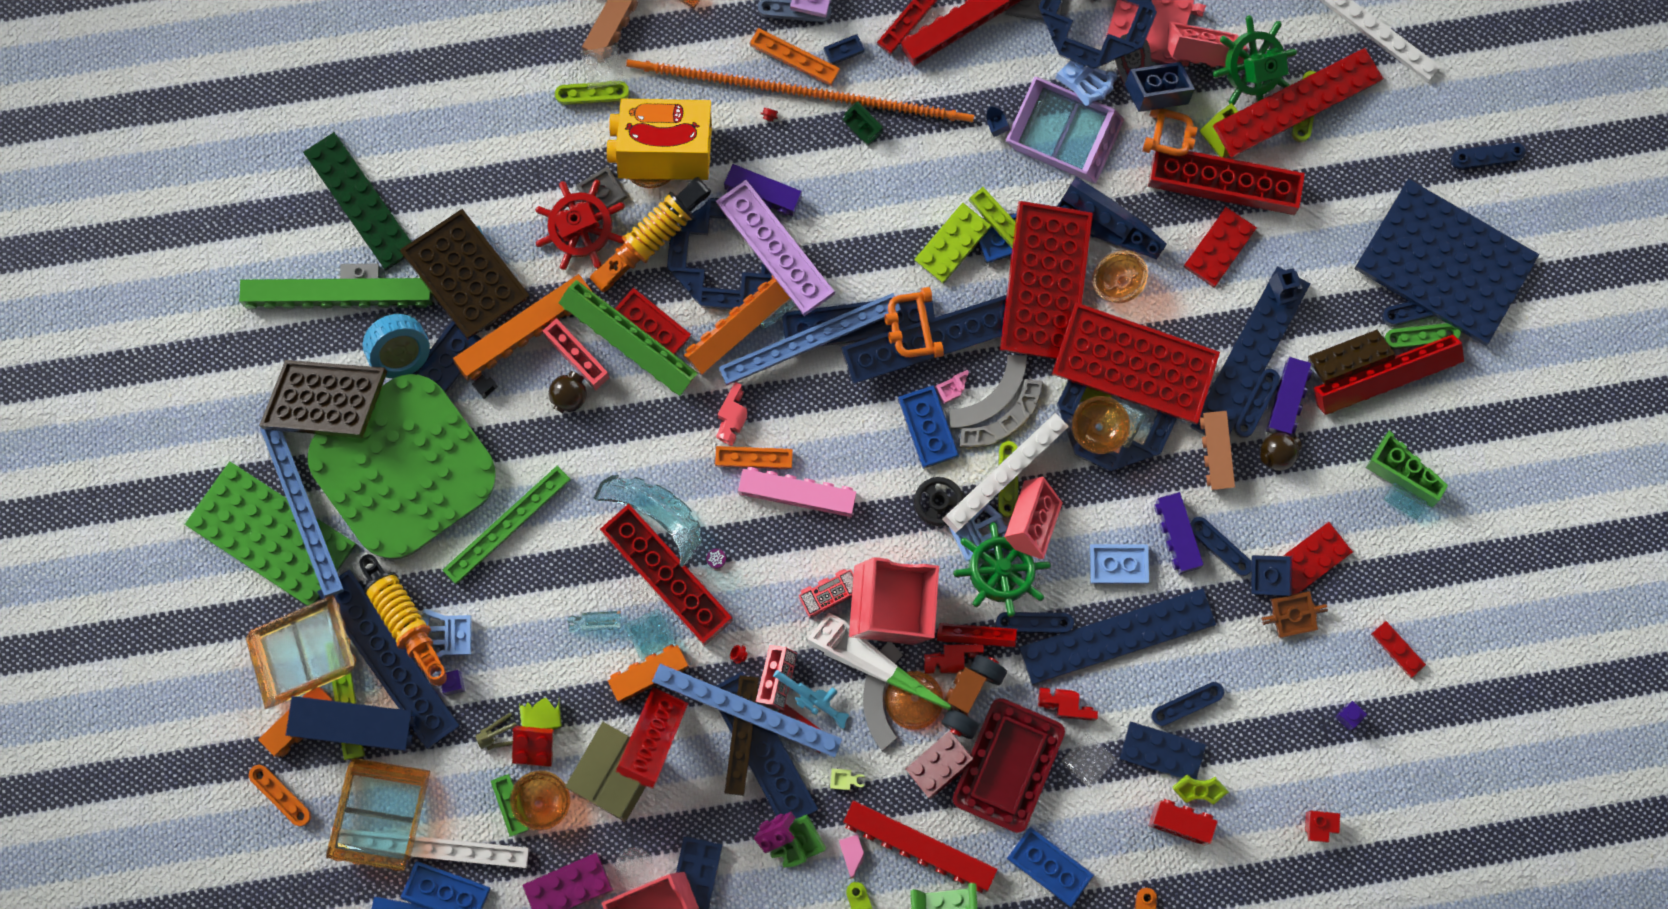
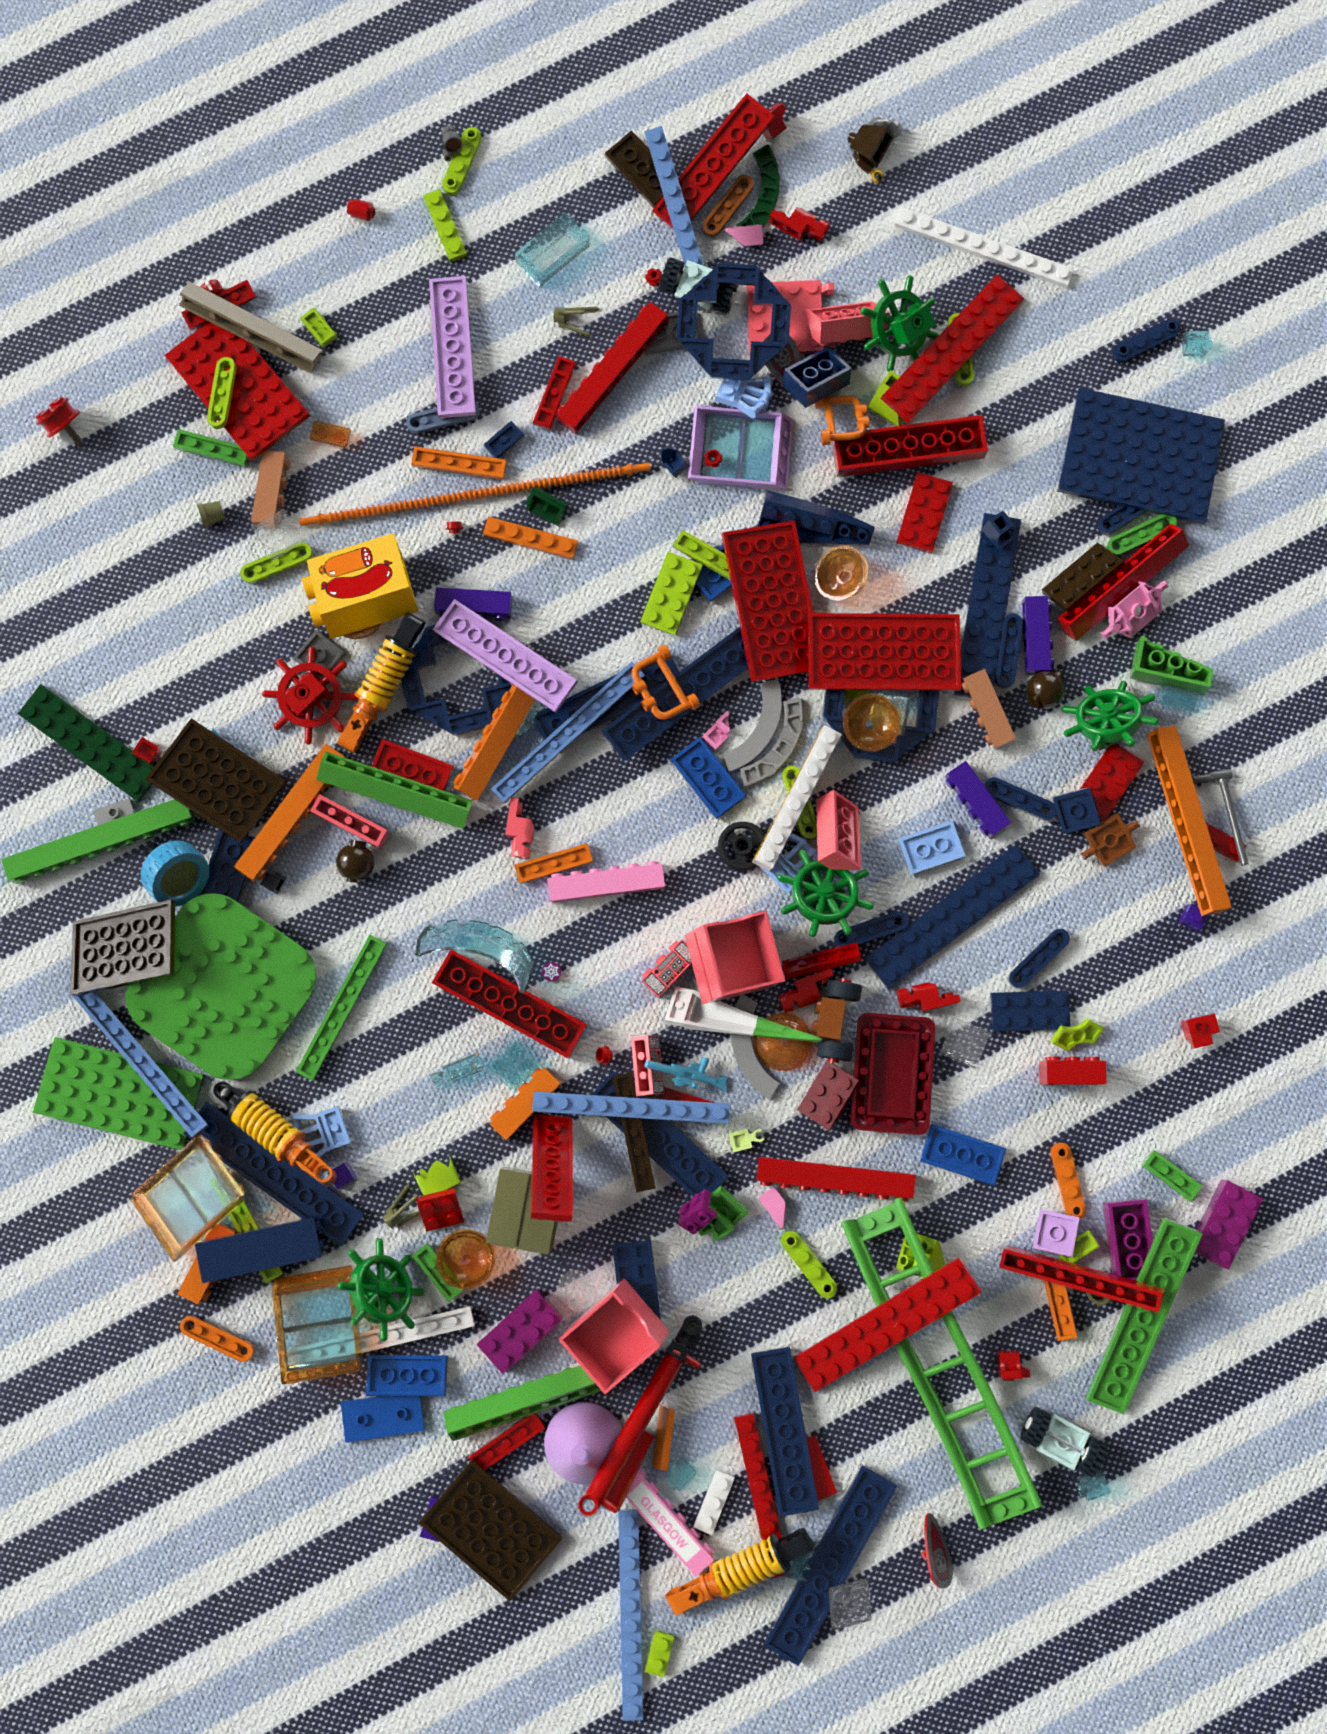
camera: 15 degrees left, 5 degrees up
(410, 226) = (147, 751): none -> red plate
(442, 801) = (374, 1293): none -> green piece
(547, 27) = (210, 513): none -> olive piece
(837, 148) = (530, 538): none -> orange plate
(1035, 126) = (713, 453): none -> red plate
(1331, 502) = (1110, 722): none -> green piece
(1376, 621) = (1189, 821): none -> orange brick
(1377, 405) = (1123, 616): none -> bright pink plate
(1423, 592) = (1223, 777): none -> dark grey bar
(1535, 174) = (1196, 343): none -> clear light blue brick

